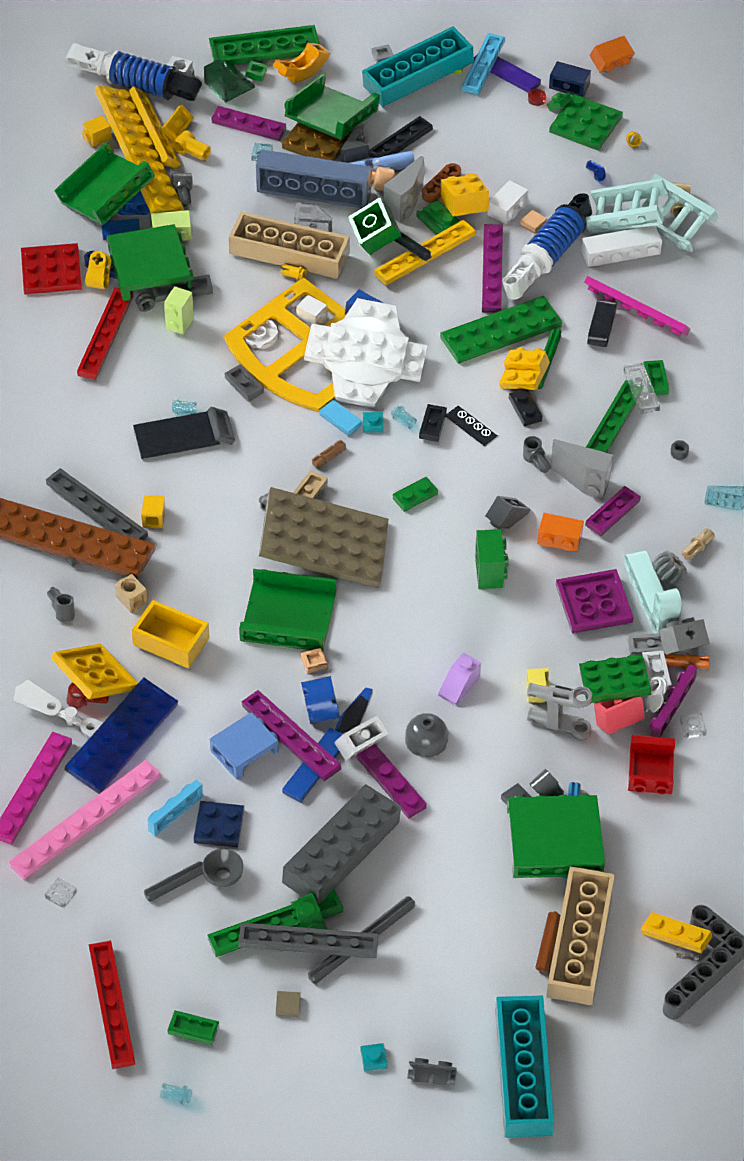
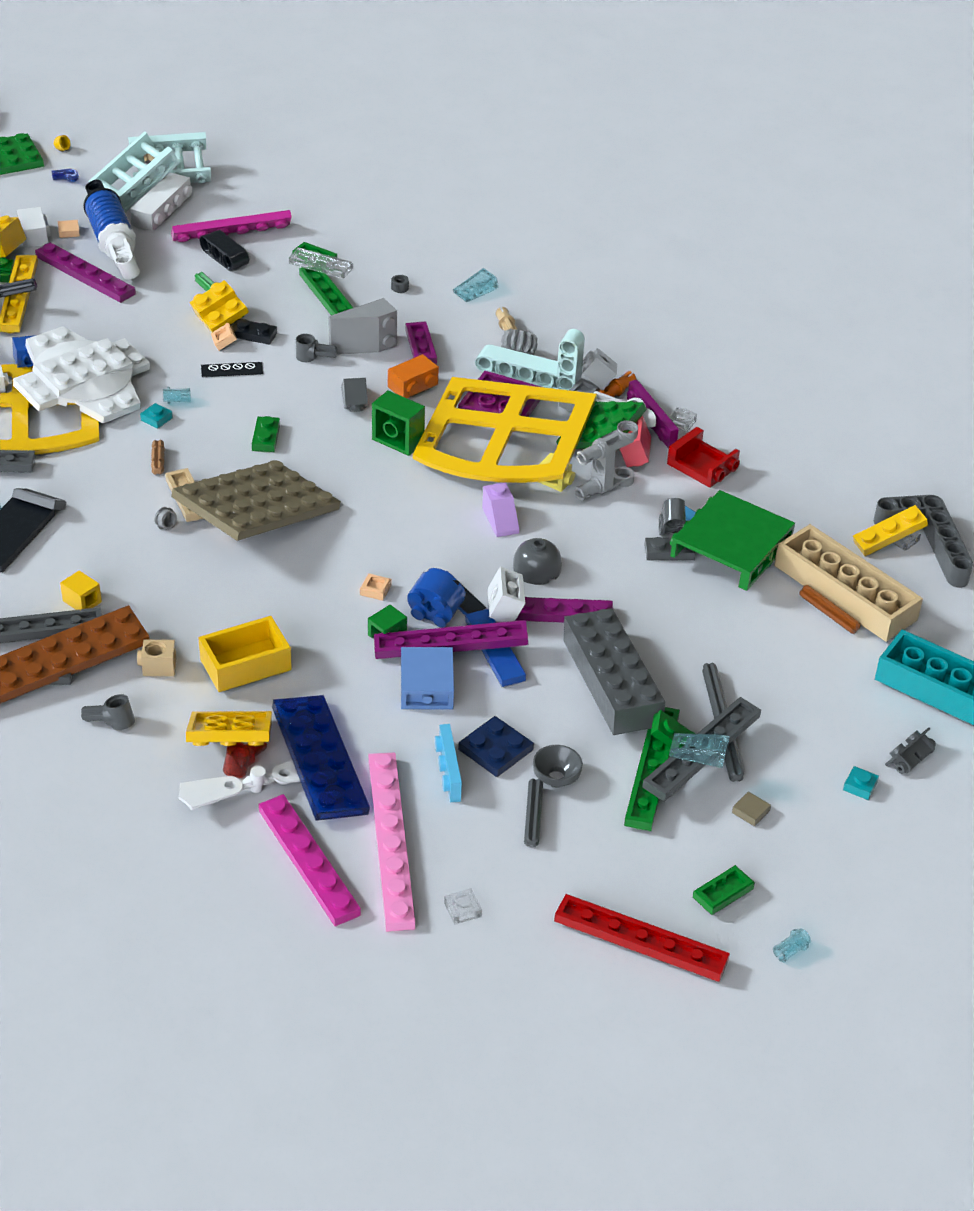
camera: 55 degrees left, 10 degrees down
(275, 688) = (387, 620): none -> green panel
(288, 610) = (300, 571): green panel -> none
(301, 951) = (712, 745): none -> clear light blue slope
(340, 417) = (126, 430): medium azure tile -> none
(433, 423) = (205, 383): black plate -> none
(497, 395) = (223, 336): none -> light nougat tile
(500, 329) = (154, 302): green plate -> none
(556, 620) = (504, 425): none -> yellow window

